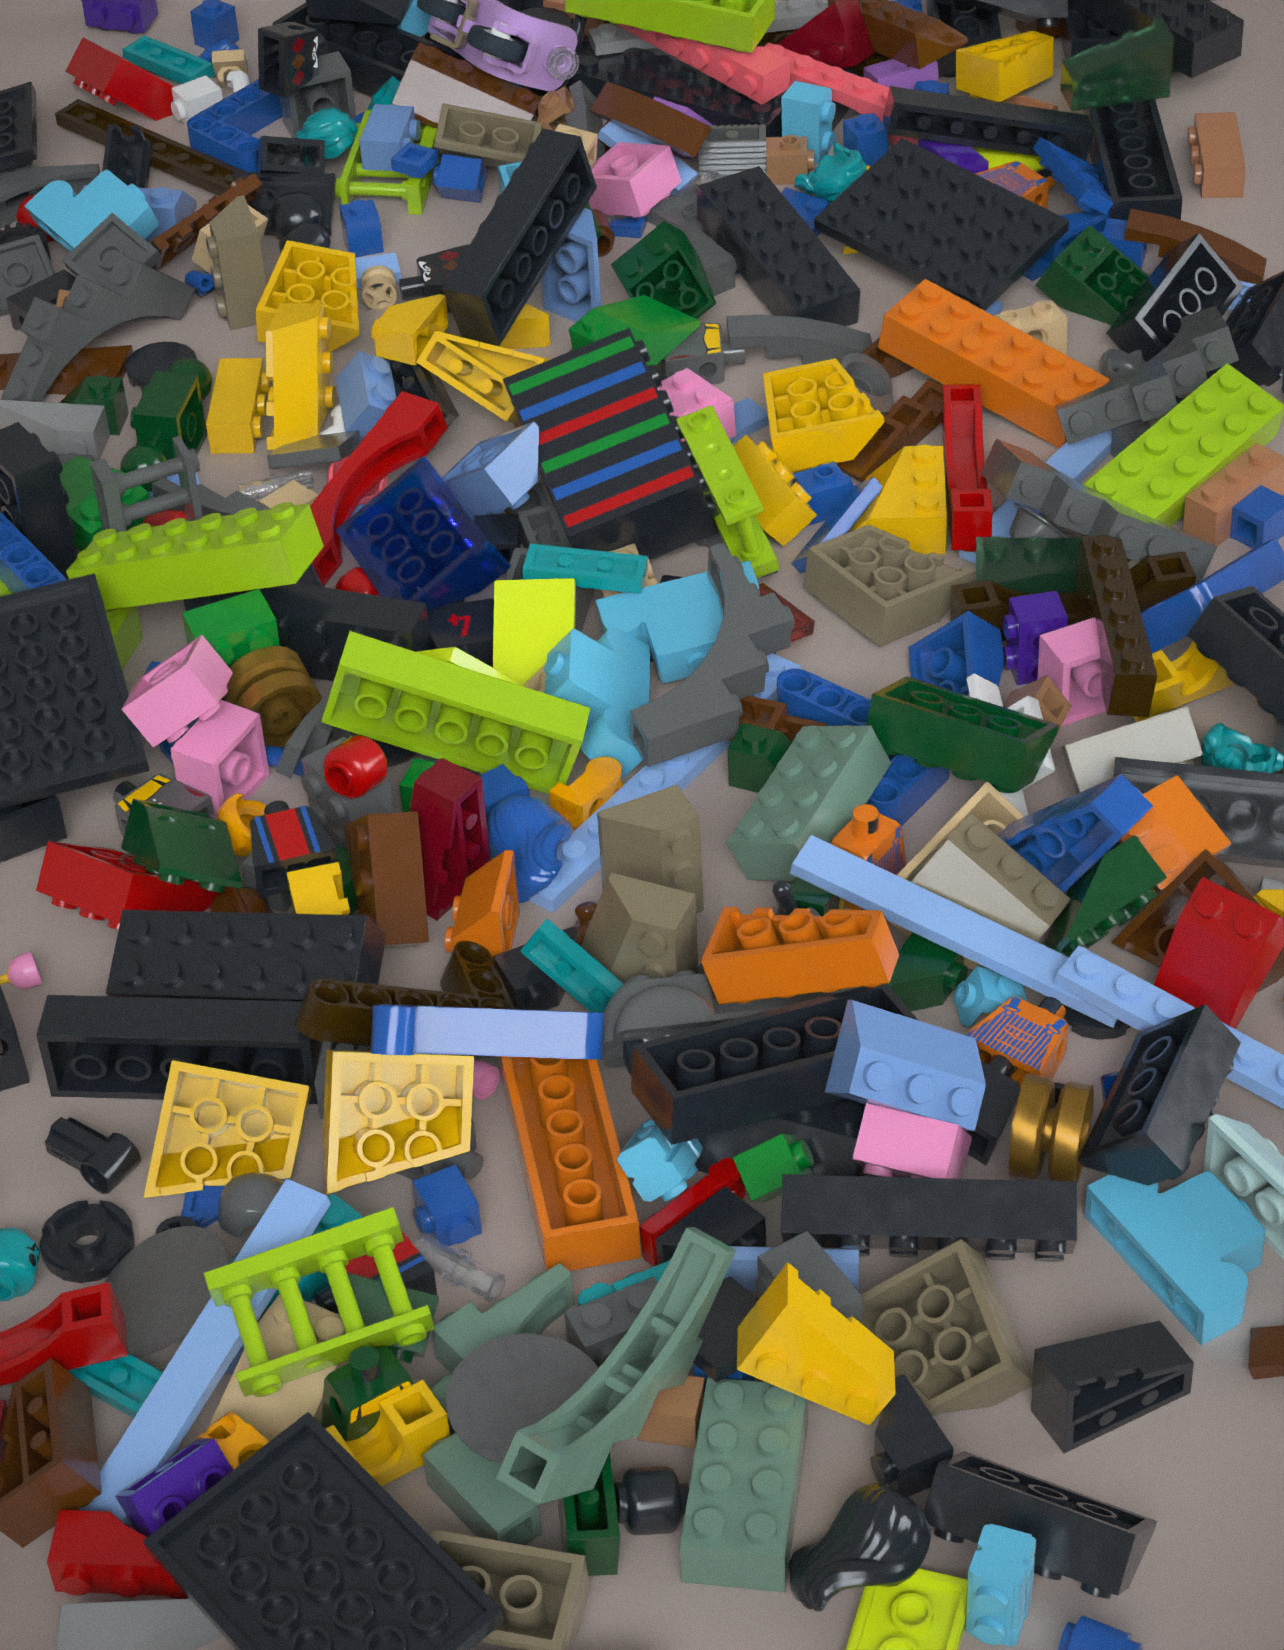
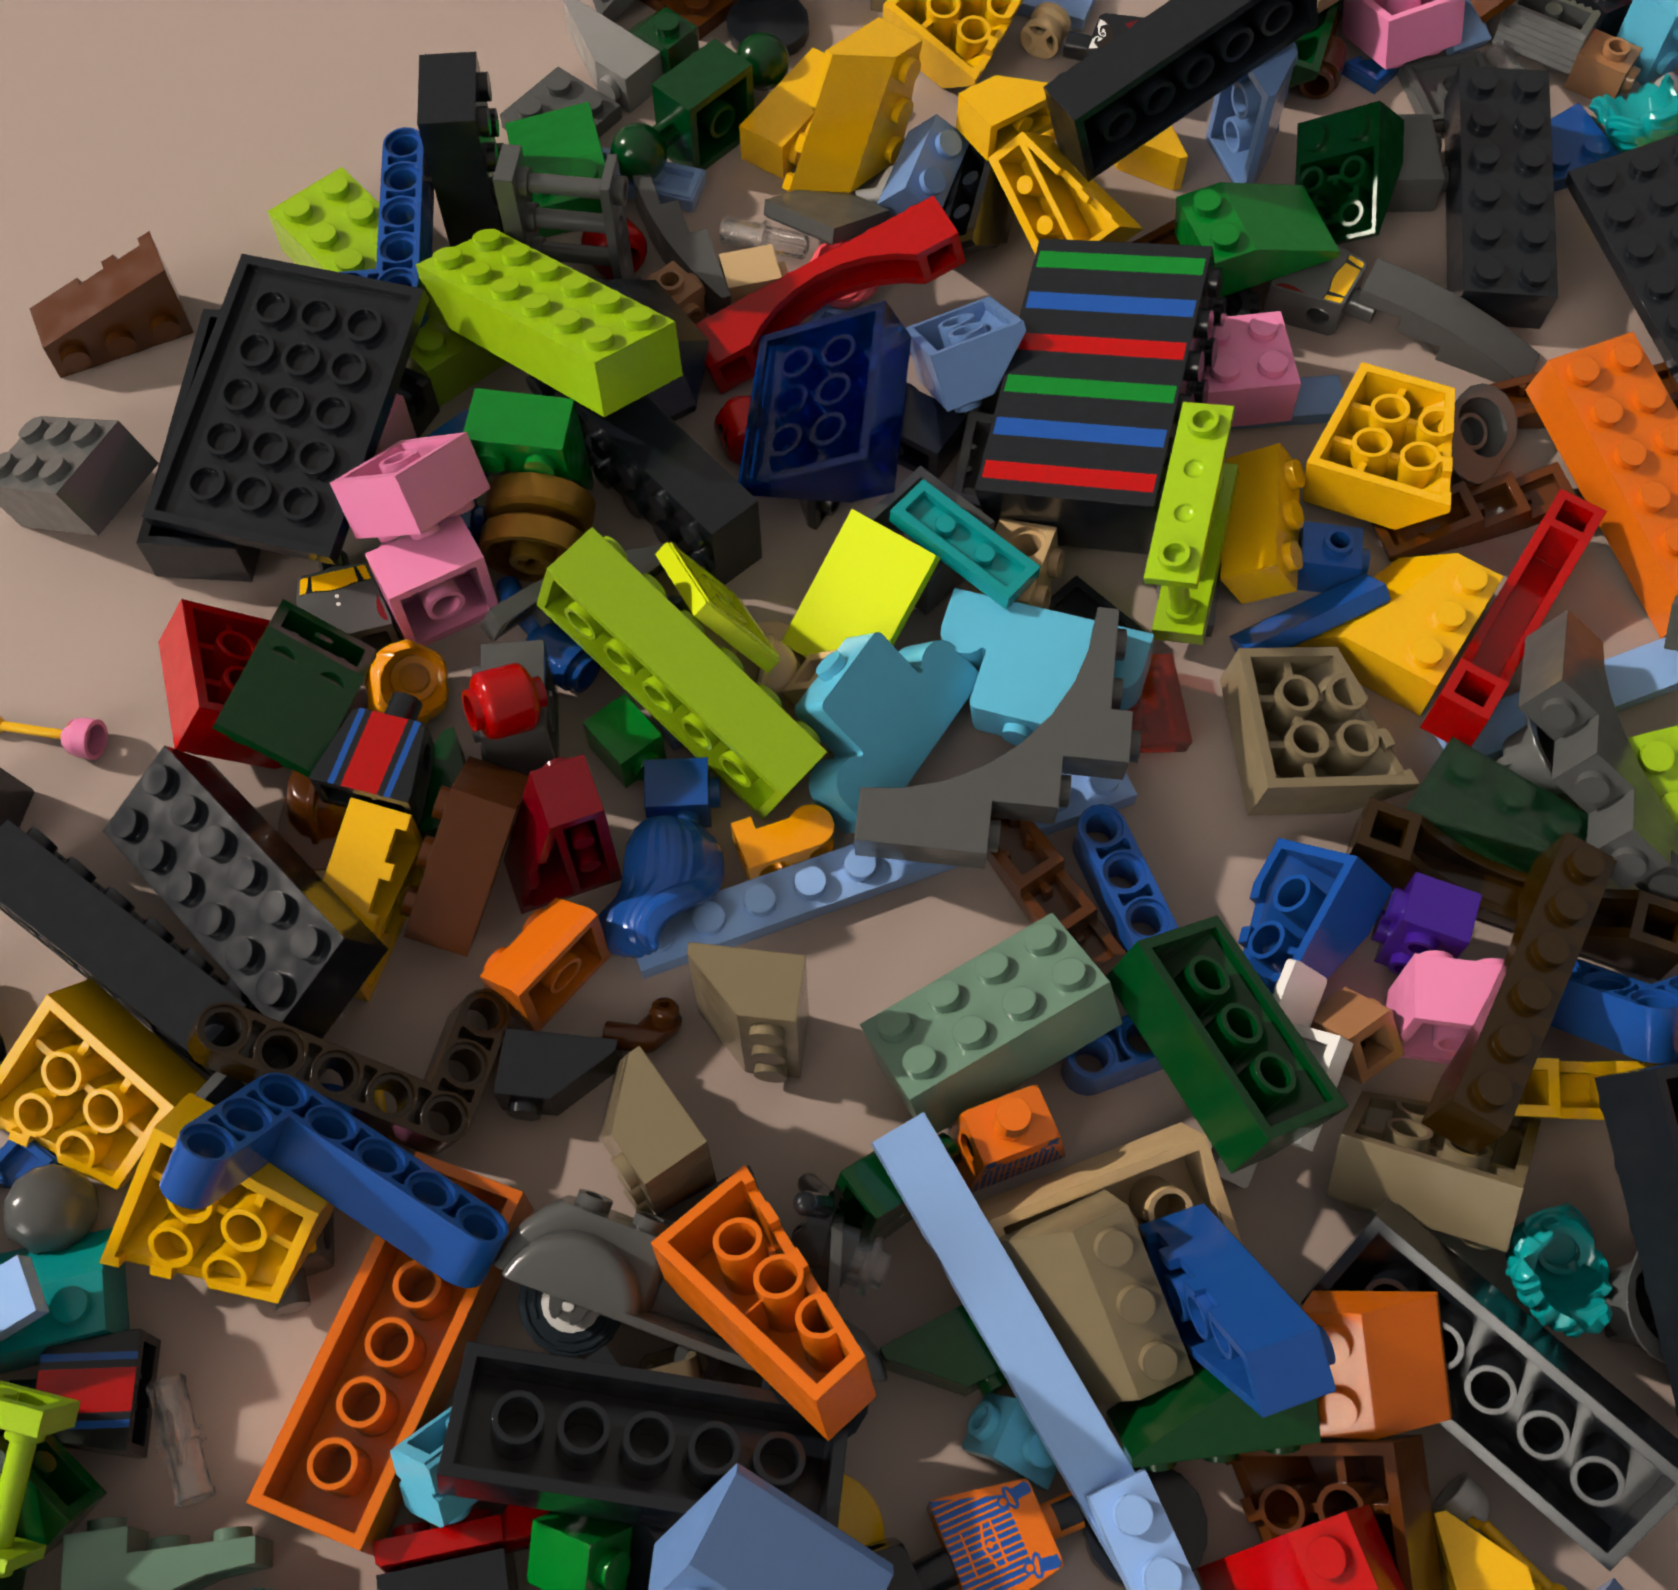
camera: 30 degrees right, 20 degrees up
(446, 1207) = (224, 1349): blue brick -> none
(465, 627) = (793, 547): black torso -> none
(571, 967) = (570, 1125): teal plate -> none
(754, 756) = (991, 906): dark green slope -> none

